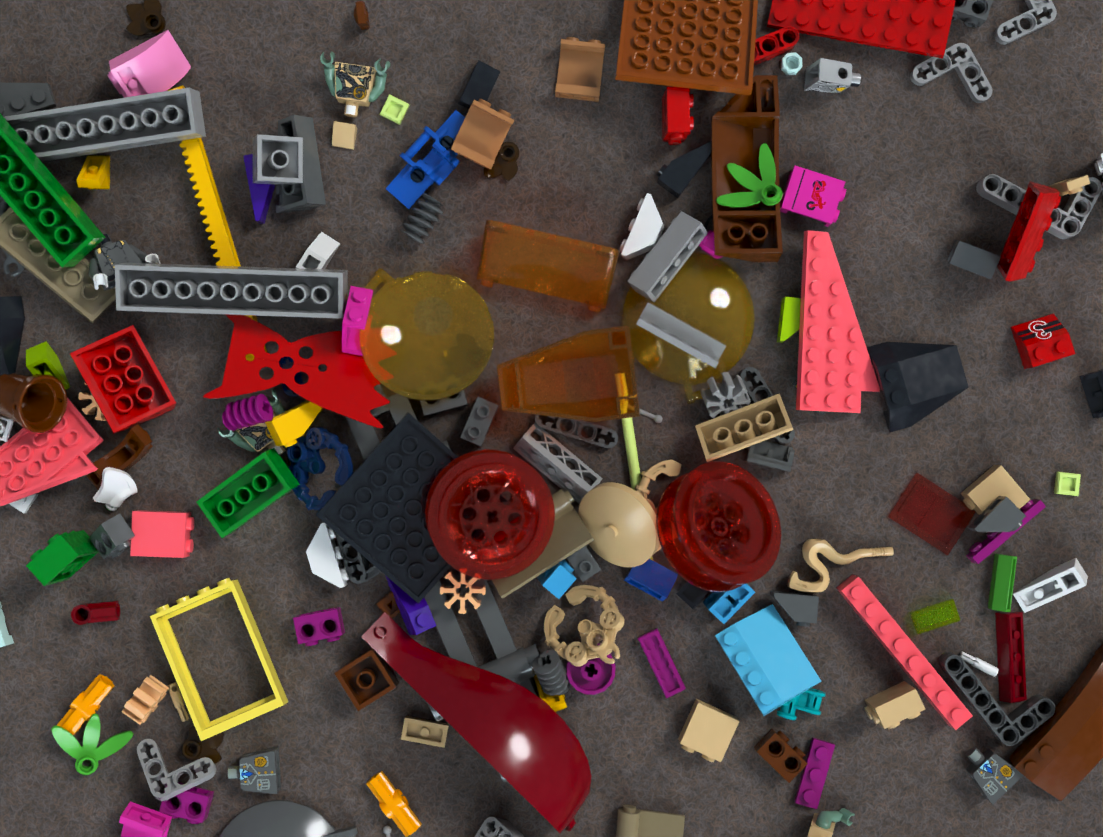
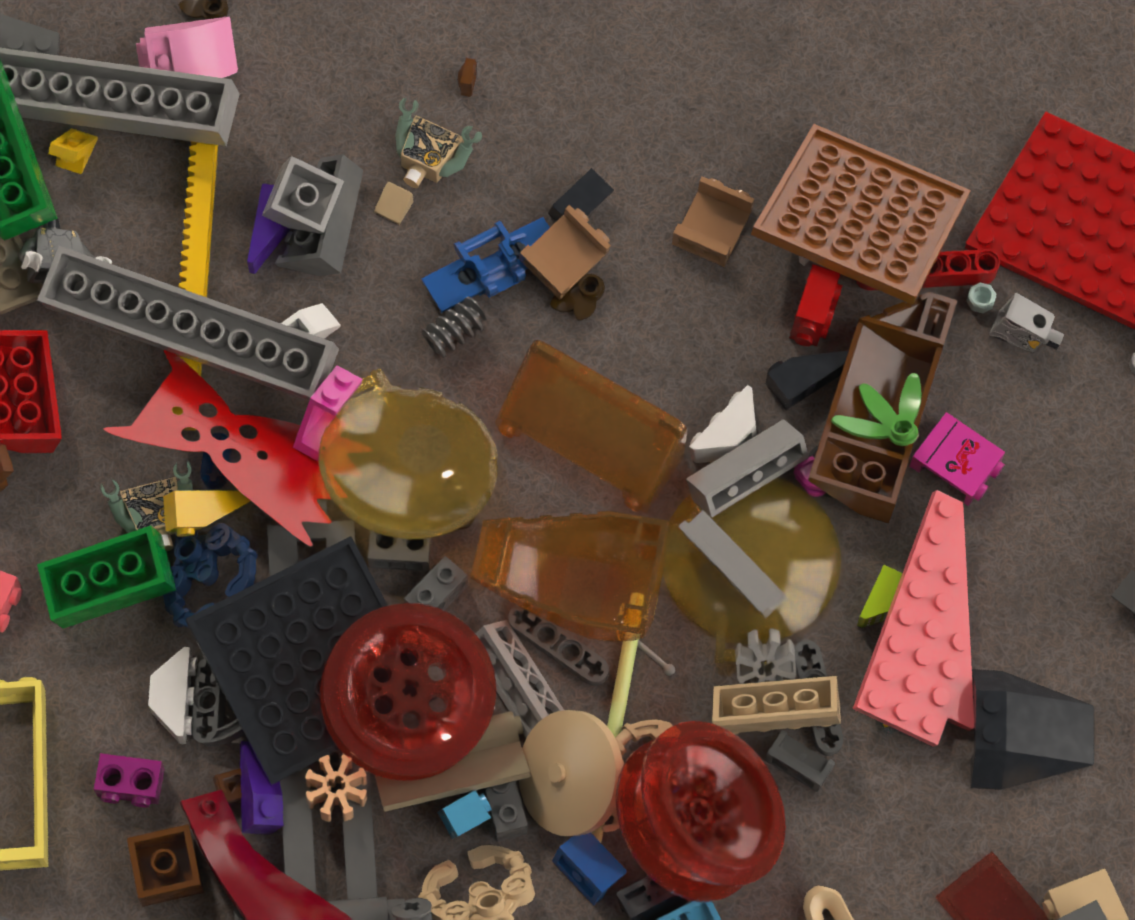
camera: 15 degrees right, 20 degrees down
(247, 412) = (147, 473): magenta piece -> none
(394, 109) = (467, 195): yellowish green tile -> none

